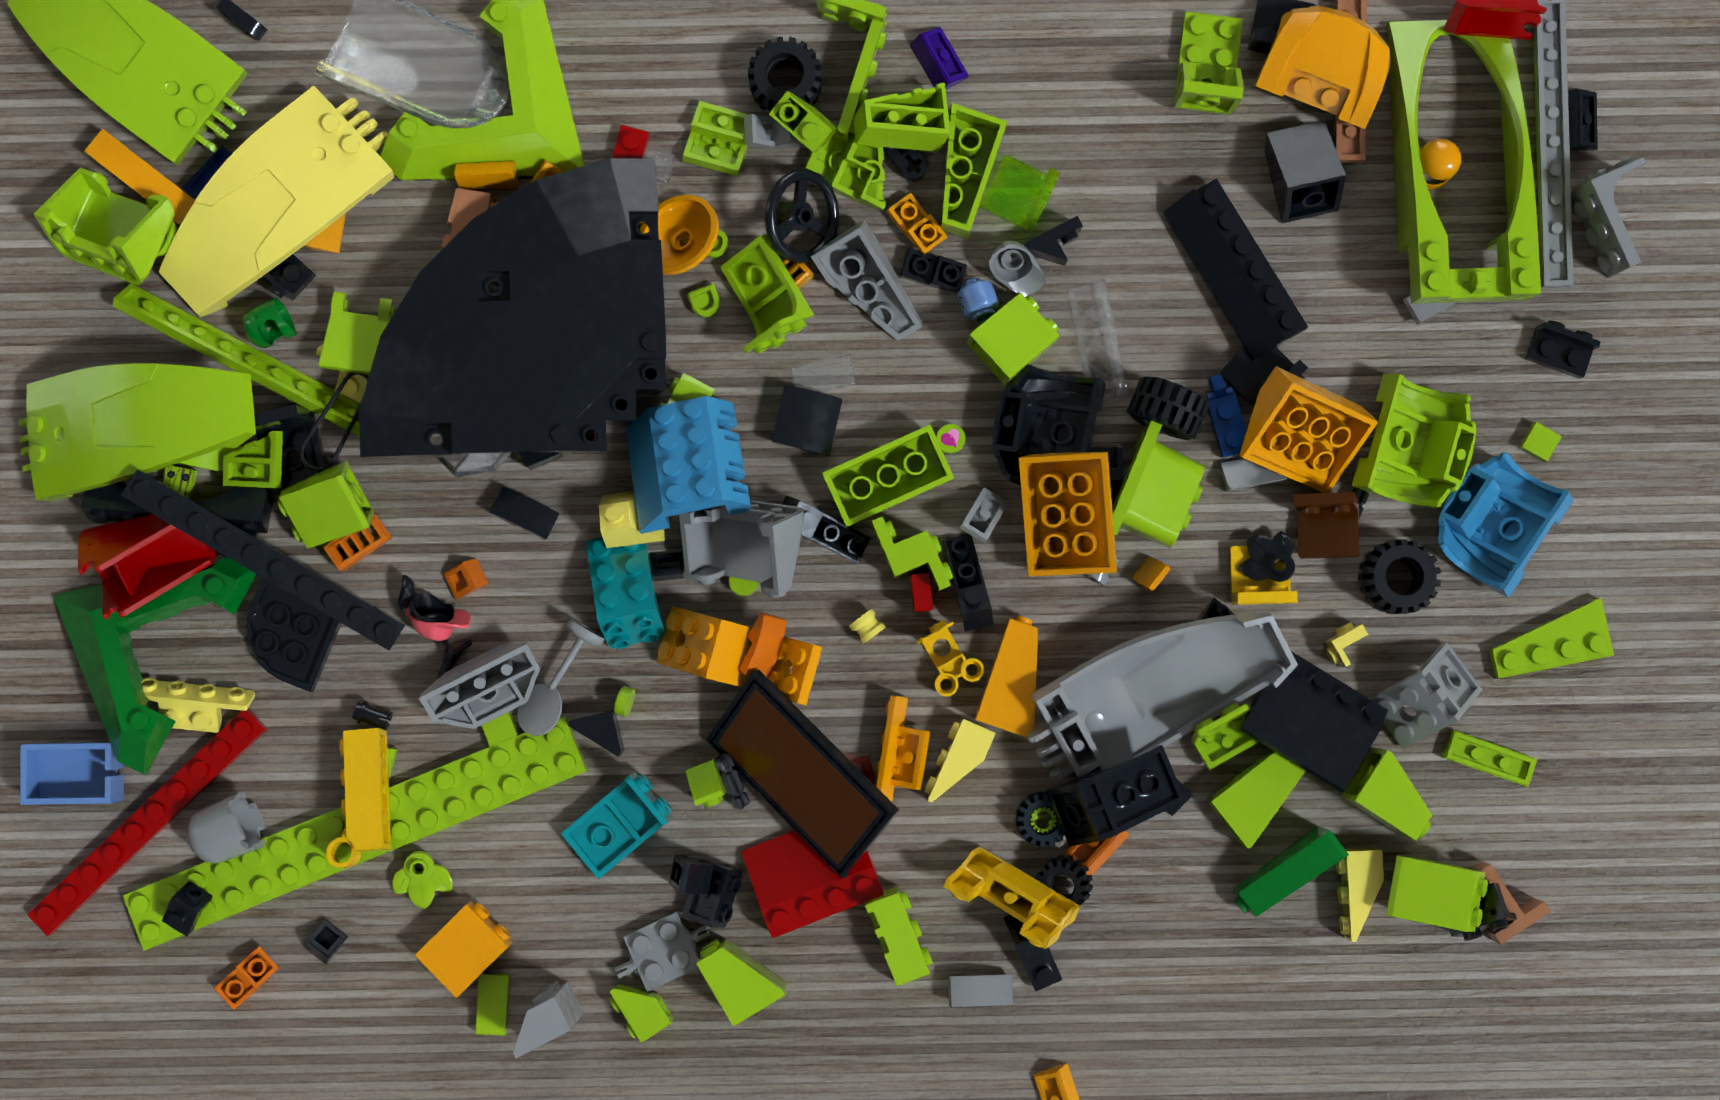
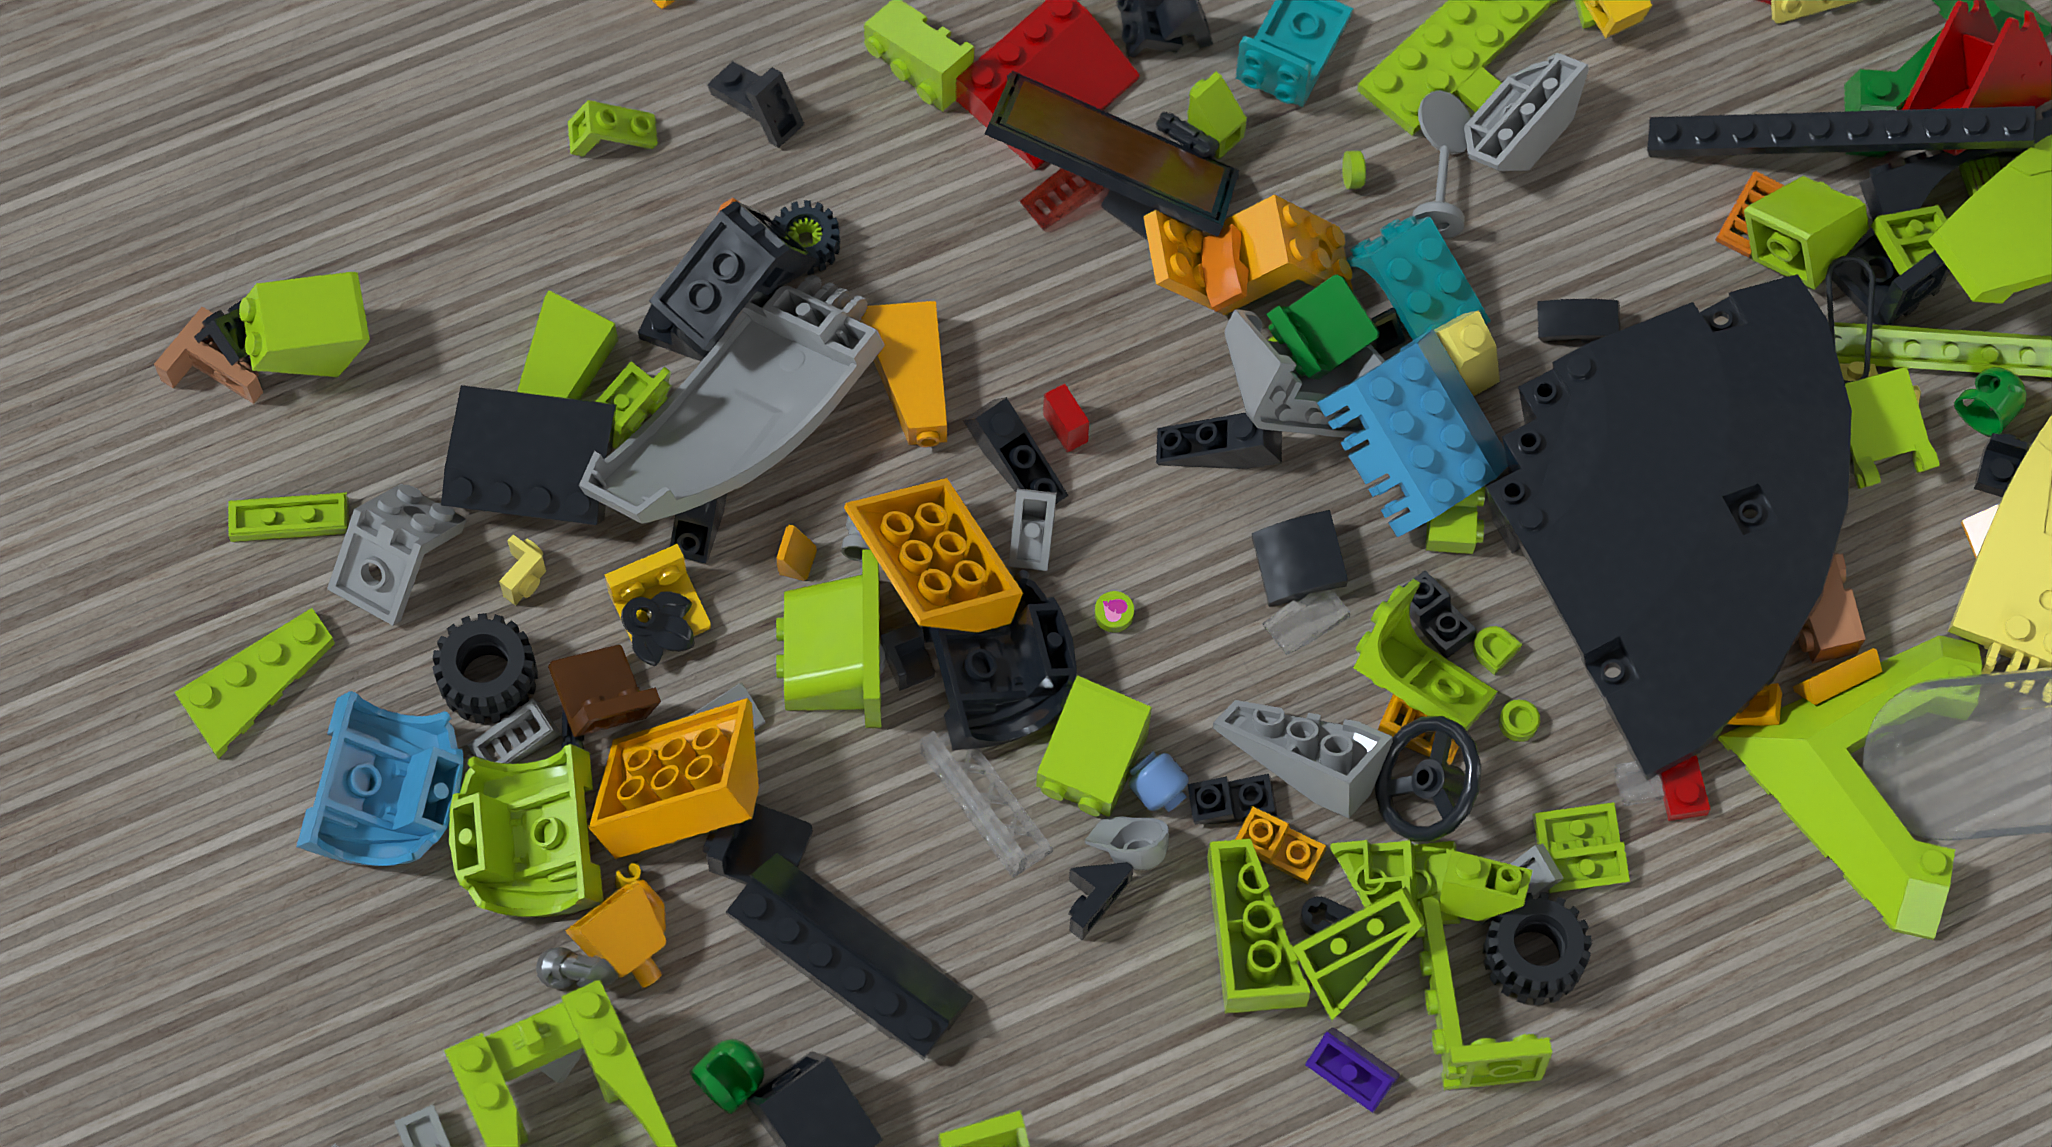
camera: 155 degrees right, 20 degrees down
(289, 636) = (1765, 79): black plate -> none
(371, 715) = (1630, 45): black pin -> none
(429, 614) = (1623, 169): hair -> none
(451, 655) = (1577, 142): black bar -> none
(465, 578) = (1606, 229): orange slope -> none
(601, 729) = (1364, 127): black slope -> none
(686, 232) = (1579, 716): light orange dish -> none
(715, 572) = (1323, 328): none -> green bracket
(731, 339) = (1438, 618): none -> black slope
(867, 626) = (1112, 358): light yellow wheel -> none
(888, 475) = (1168, 527): lime brick -> none
(902, 751) = (1005, 237): light orange bracket -> none
(912, 553) = (1100, 448): lime bracket -> none
(953, 664) = (991, 359): yellow piece -> none
(965, 753) = (932, 261): light yellow slope -> none
(980, 990) = (796, 35): light grey slope -> none
(1015, 892) = (804, 134): yellow bracket -> none
(1019, 192) = (1169, 938): clear neon green bracket -> none
(1073, 870) = (756, 161): black tyre -> none
(1146, 971) = (610, 123): none -> lime bracket
(1168, 404) = (863, 737): black tyre -> none
(1225, 417) = (785, 779): blue hinge -> none
(1289, 870) = (487, 292): green slope -> none
(1342, 222) = (729, 1074): none -> green helmet
(1360, 883) = (395, 317): light yellow slope -> none
(1375, 525) = (521, 750): none -> light grey slope
(1387, 344) = (615, 936): none -> light orange torso
(1388, 795) = (402, 409): lime slope -> none
(1540, 442) = (363, 913): lime tile -> none
(1561, 348) = (378, 1039): black bracket -> none

